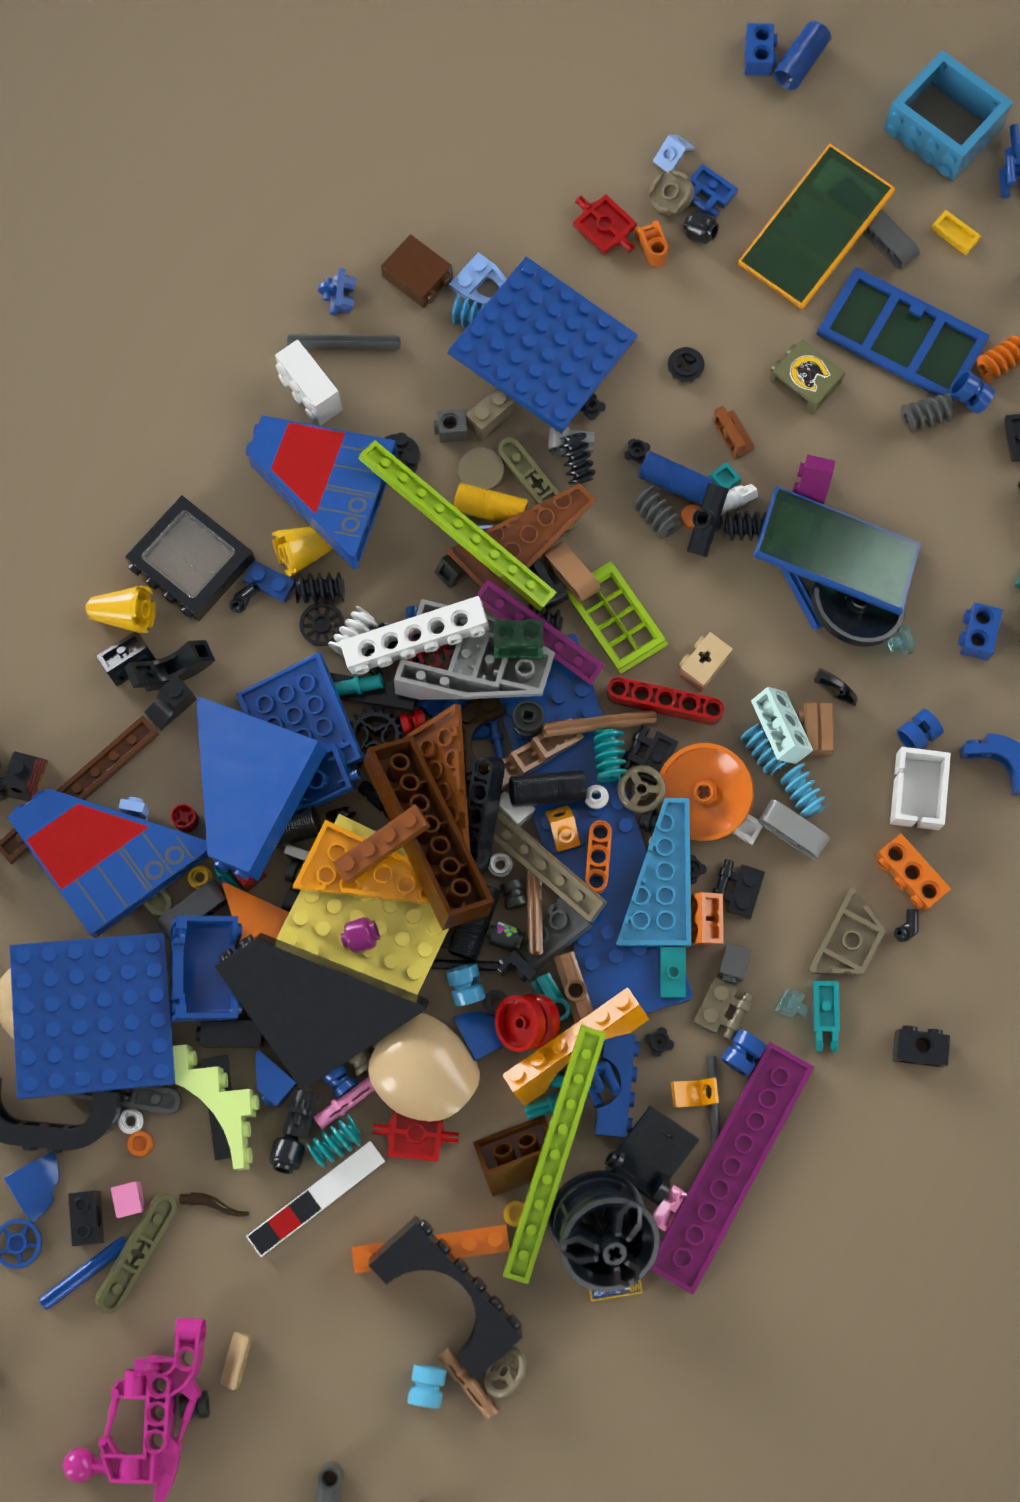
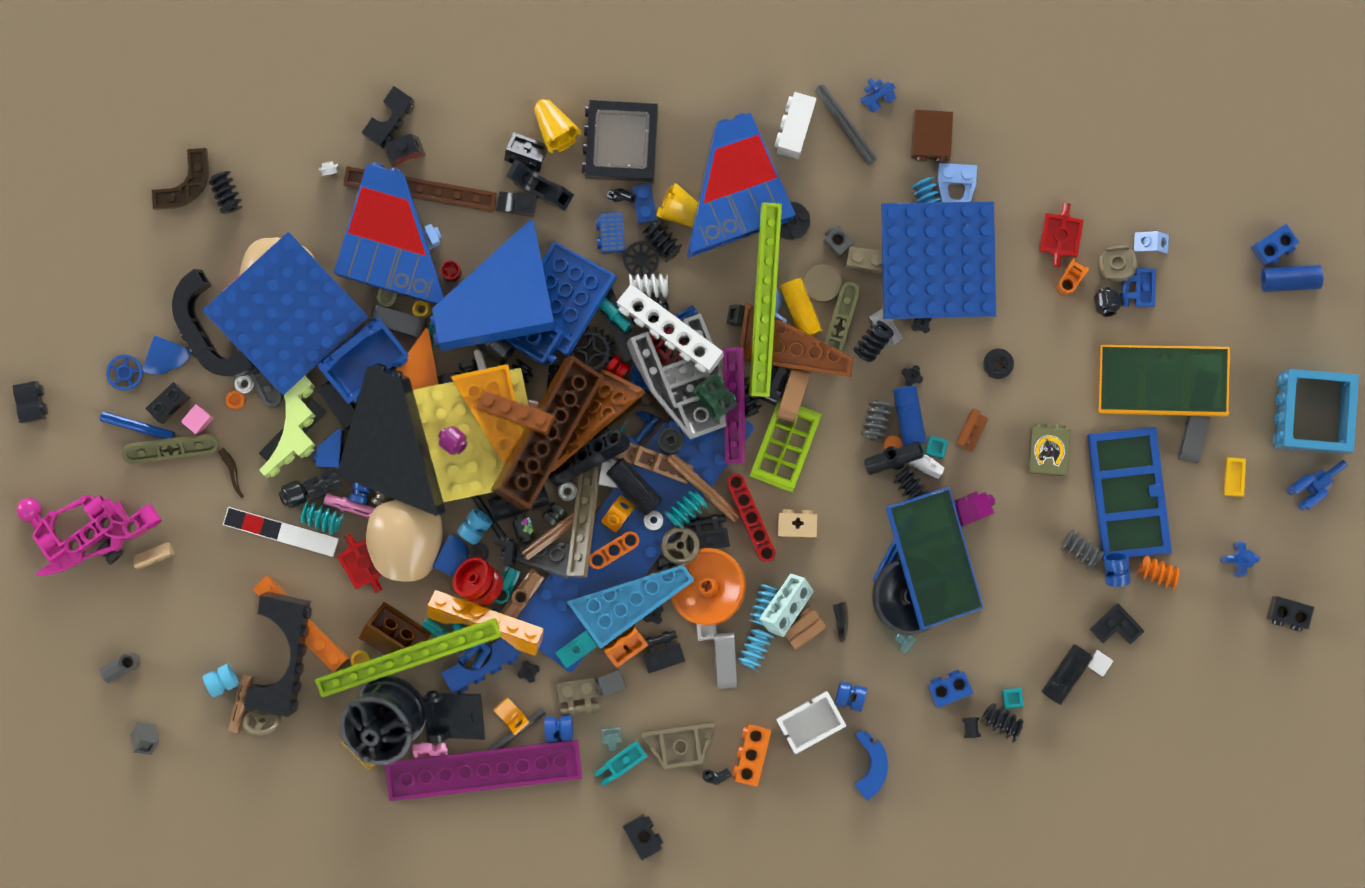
camera: 50 degrees right, 10 degrees up
(273, 632) = (611, 233): none -> blue brick

